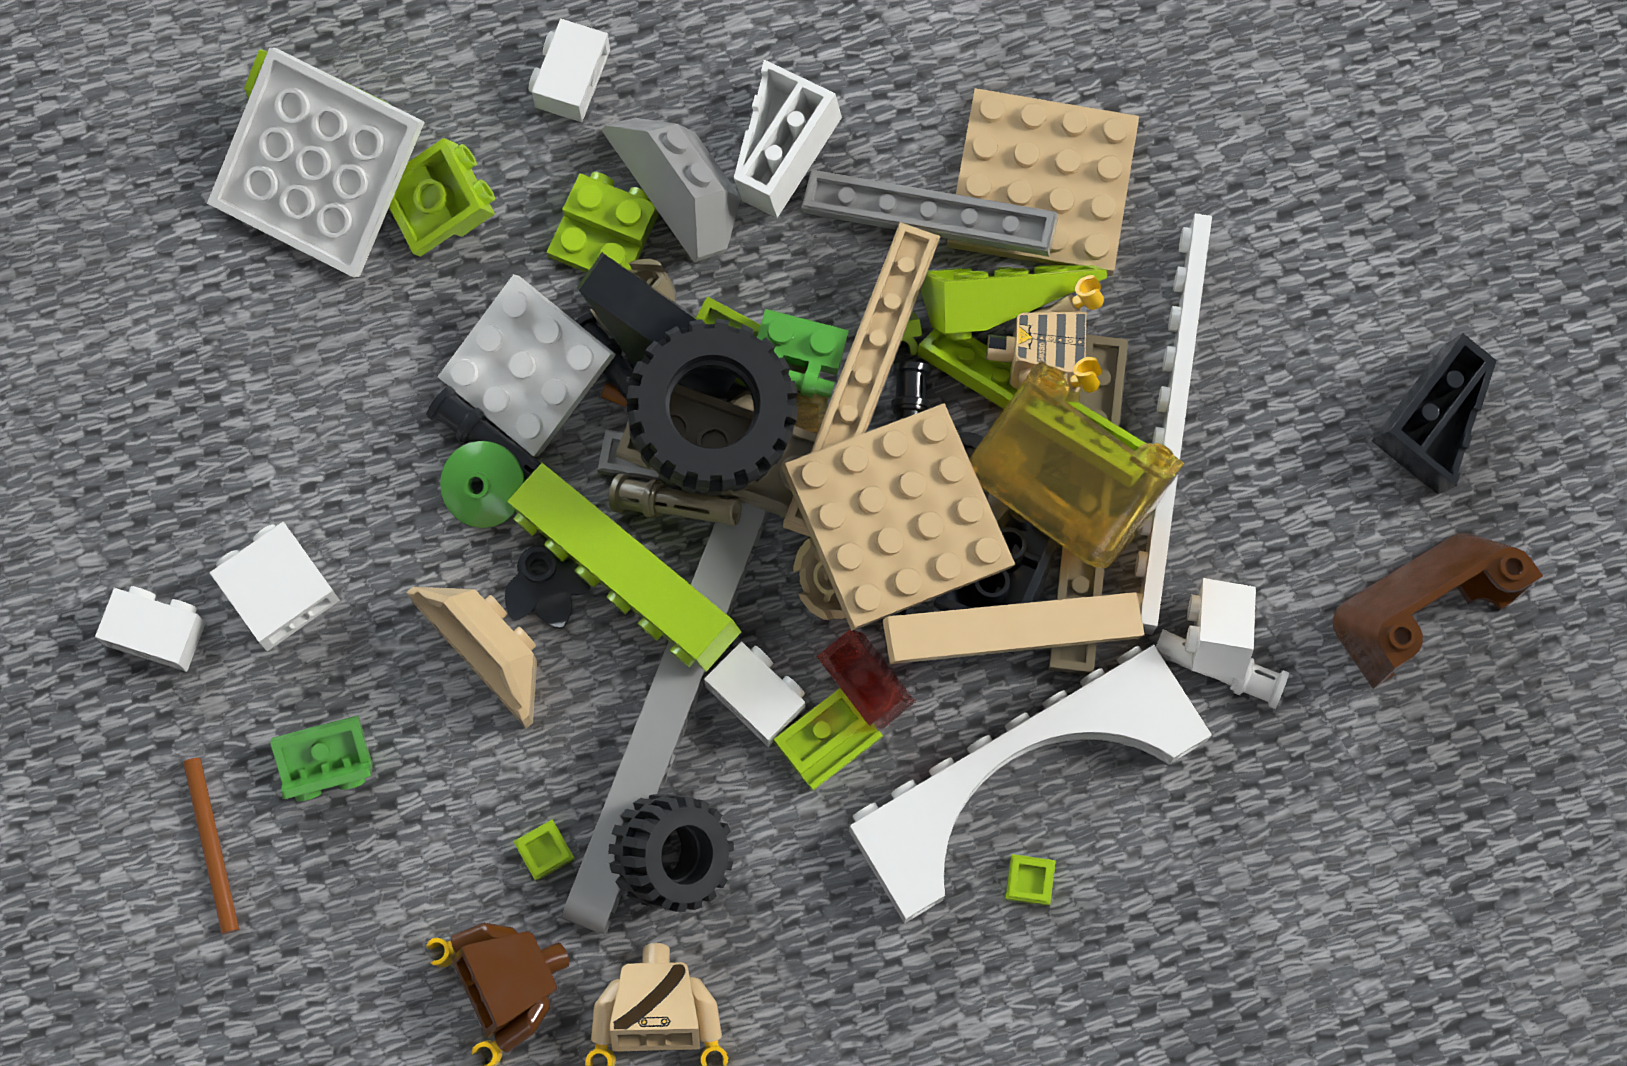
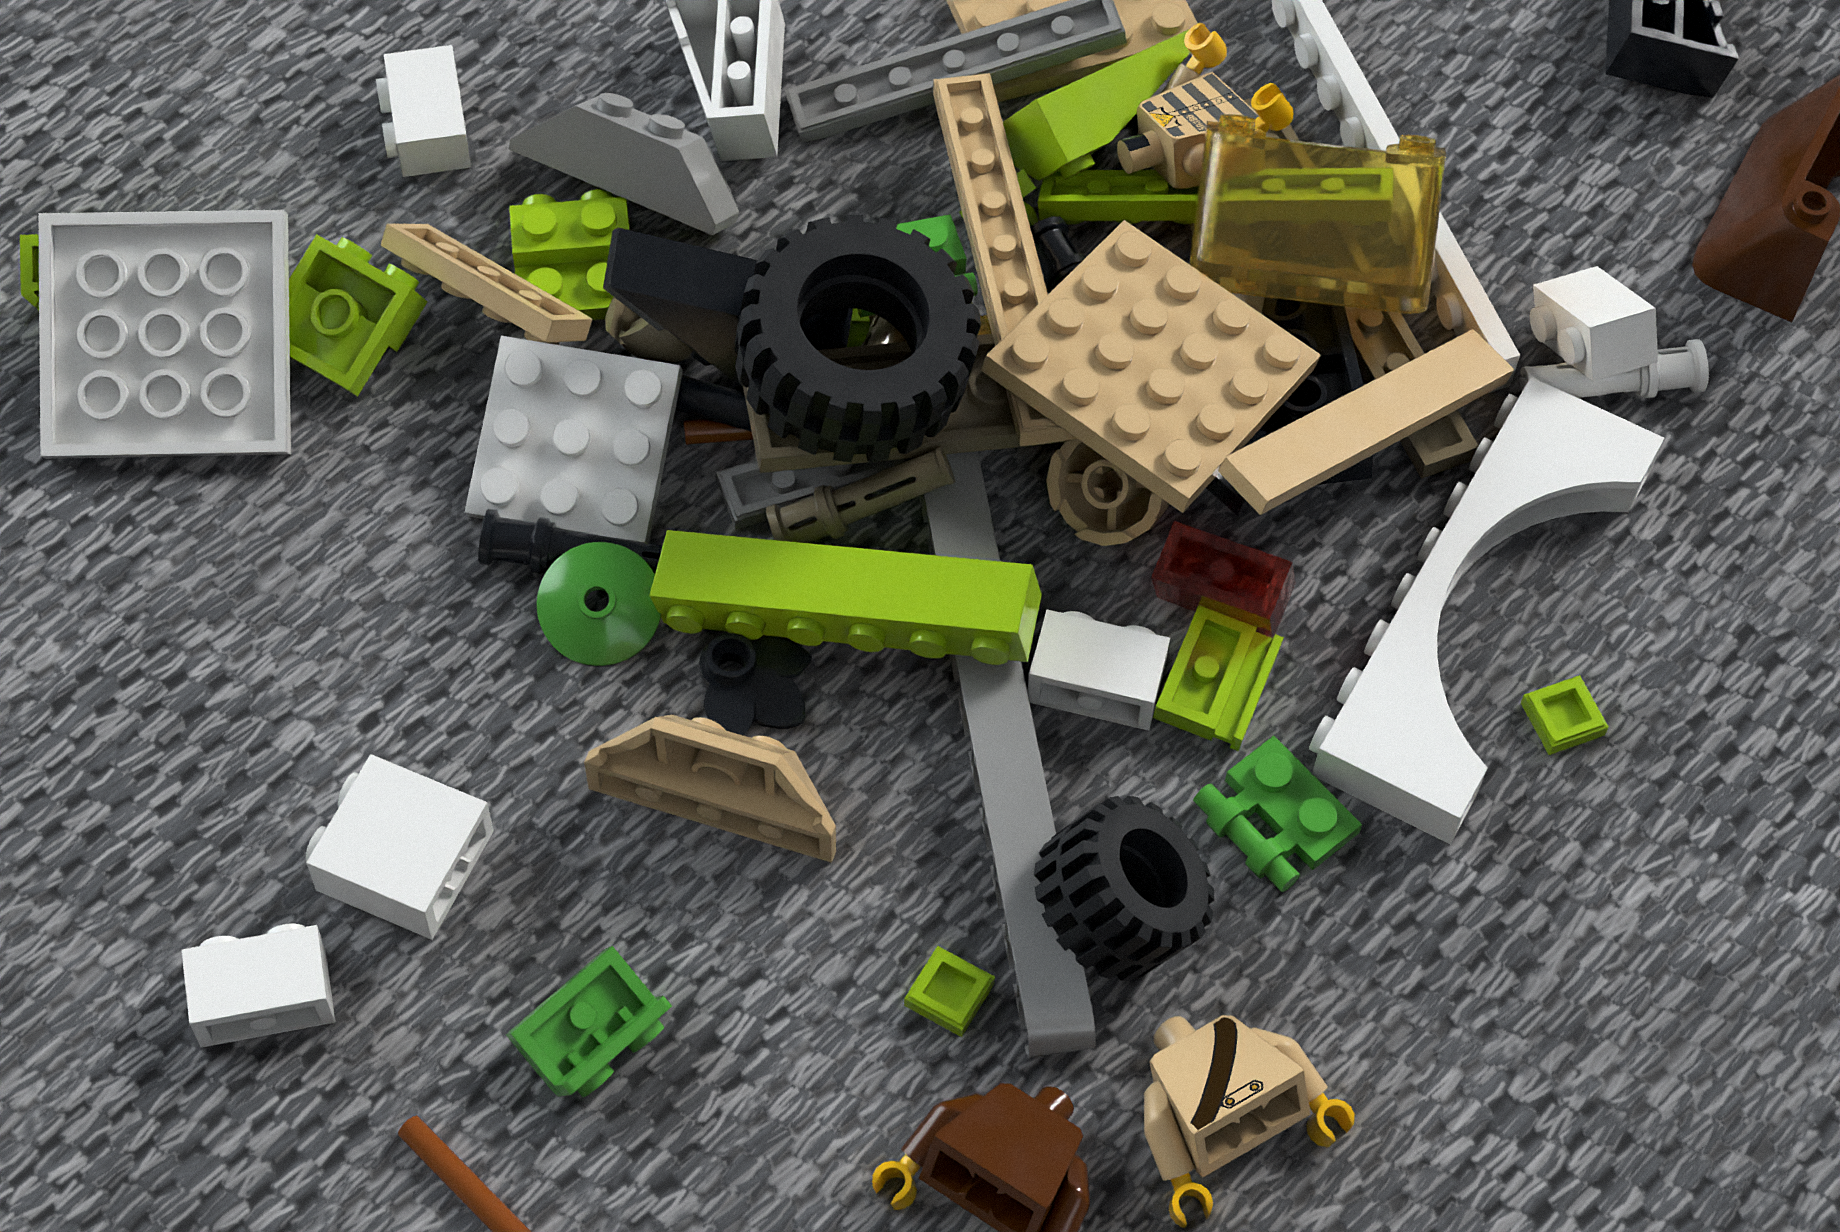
camera: 30 degrees left, 15 degrees down
(533, 223) = (477, 278): none -> tan plate
(822, 847) = (1290, 802): none -> bright green plate

